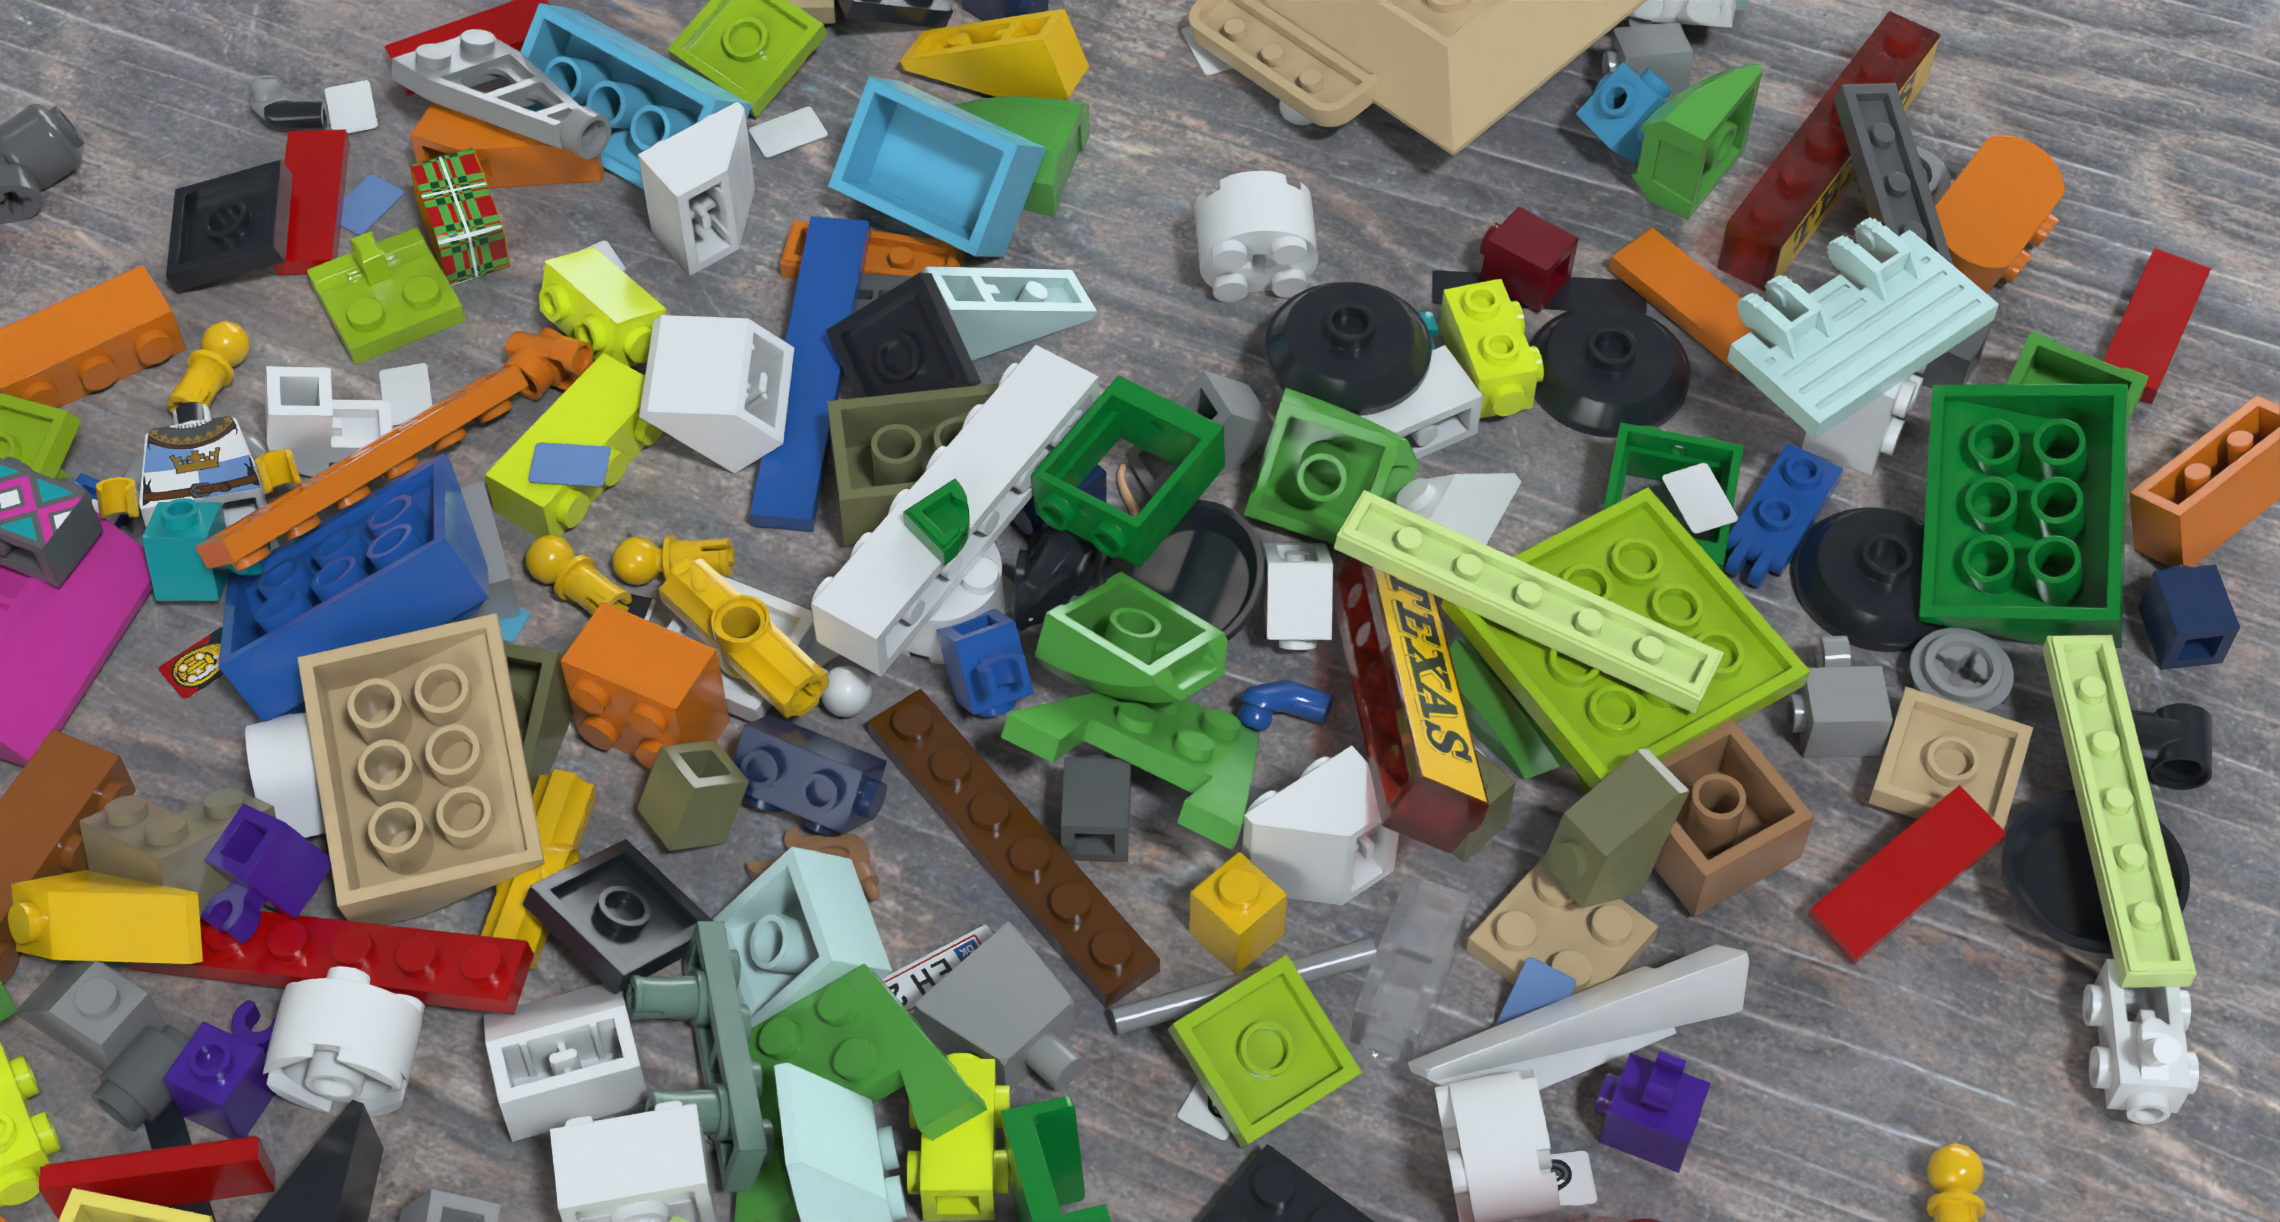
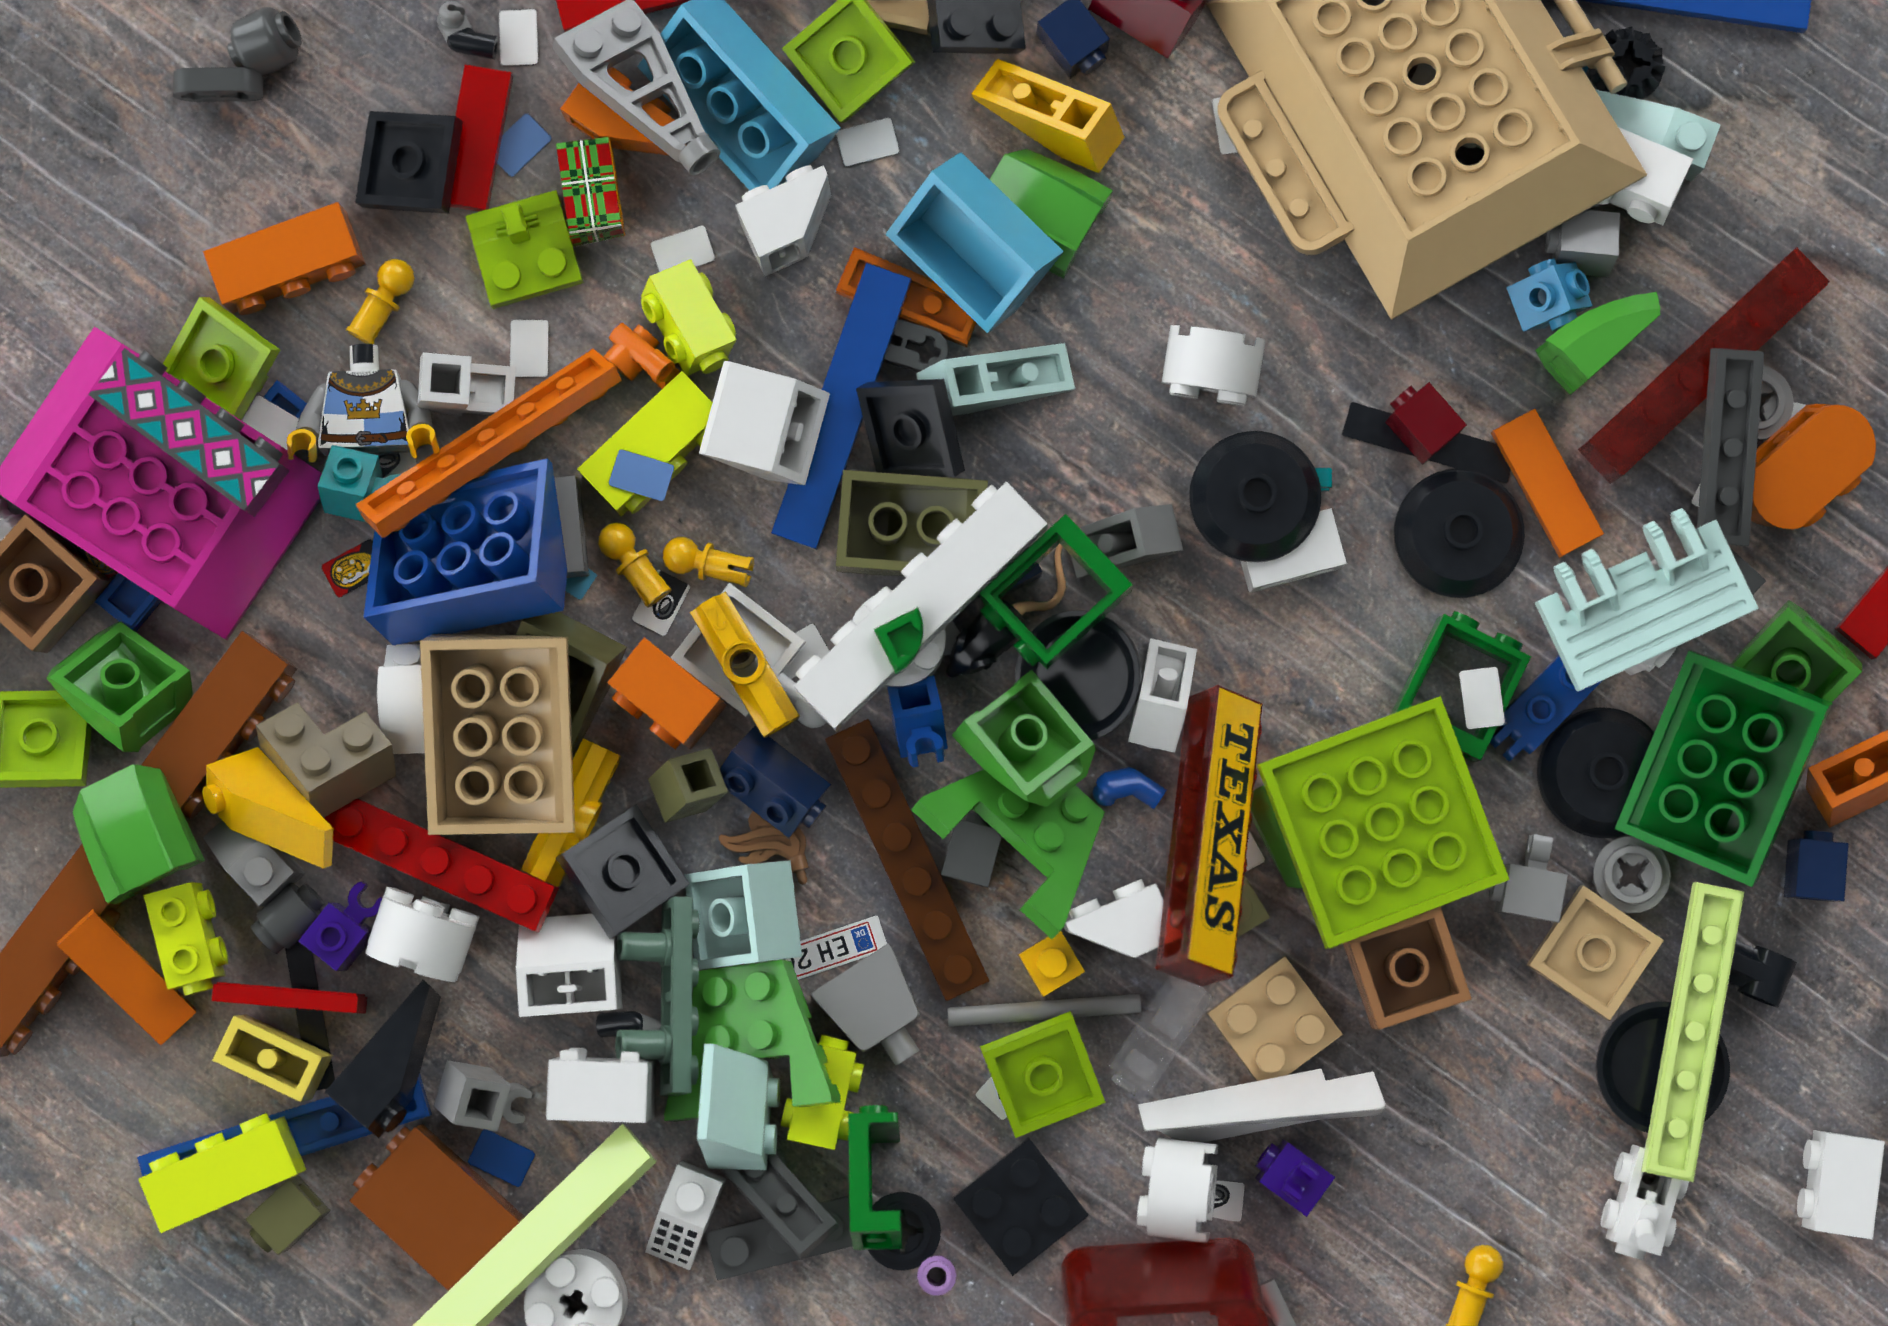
camera: 15 degrees right, 30 degrees up
(265, 866) = (381, 790): dark purple brick -> none
(1322, 463) = (1208, 606): bright green slope -> none
(1462, 501) = (1295, 660): white slope -> none
(1490, 345) = (1367, 511): neon yellow brick -> none
(1529, 601) = (1317, 787): yellowish green tile -> none
(1535, 988) = (1239, 1069): medium blue sticker -> none
(1616, 831) = (1327, 978): olive slope -> none
(1906, 874) = (1530, 1037): red tile -> none

